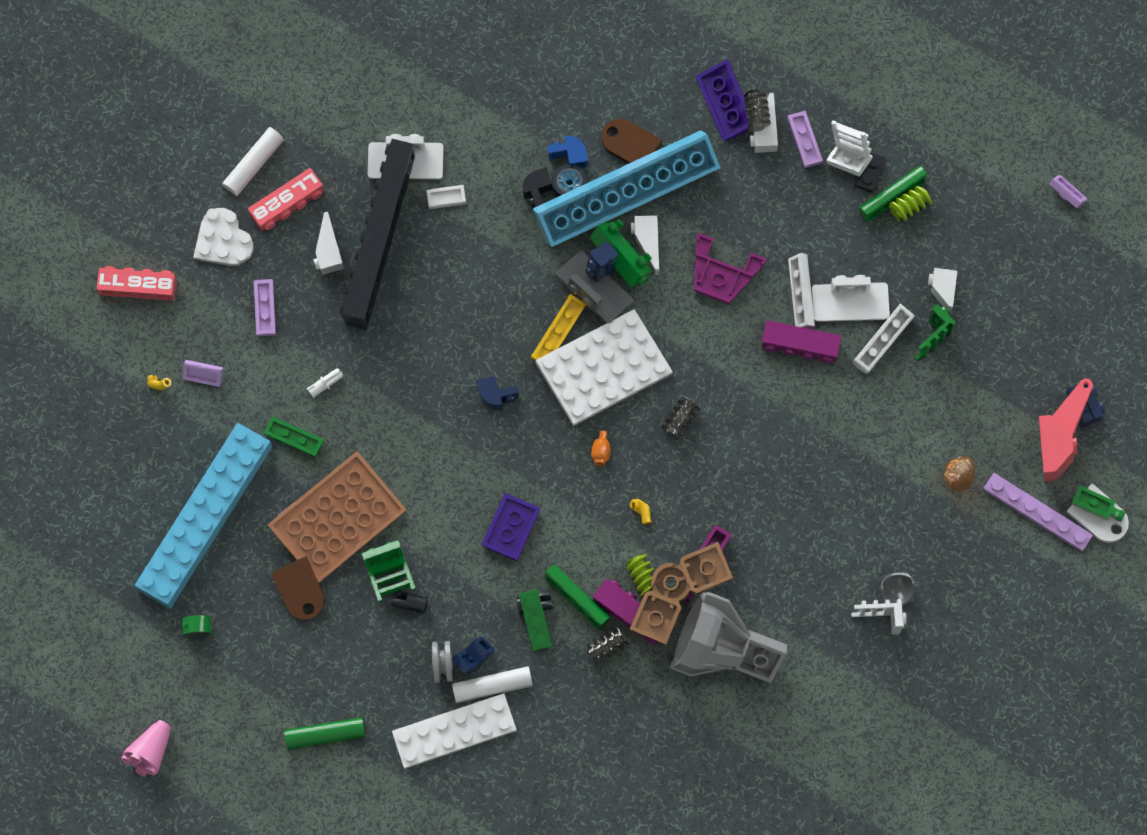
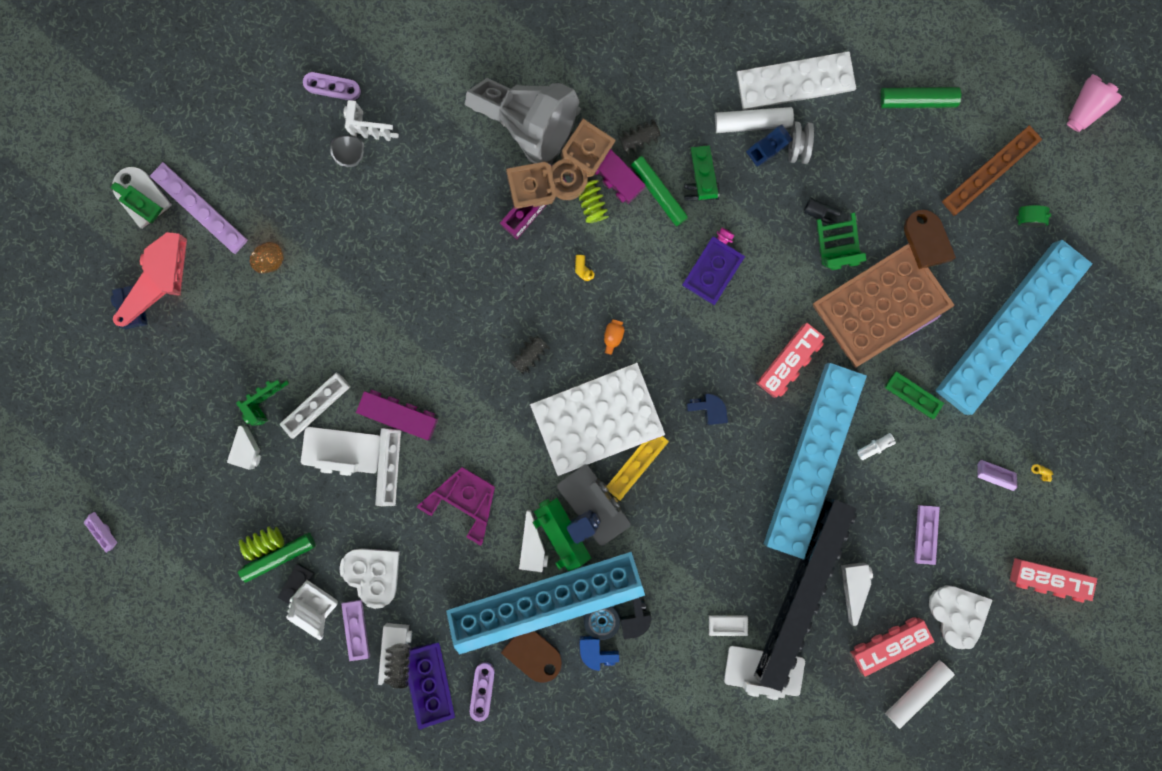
camera: 170 degrees left, 15 degrees up
(242, 669) = (991, 170): none -> dark orange plate
(384, 360) = (814, 460): none -> medium azure brick
(421, 451) = (790, 360): none -> coral brick
(504, 562) = (725, 236): none -> dark pink plate
(673, 95) = (479, 699): none -> lavender plate
(798, 192) = (372, 574): none -> white plate
(935, 648) = (324, 83): none -> lavender plate

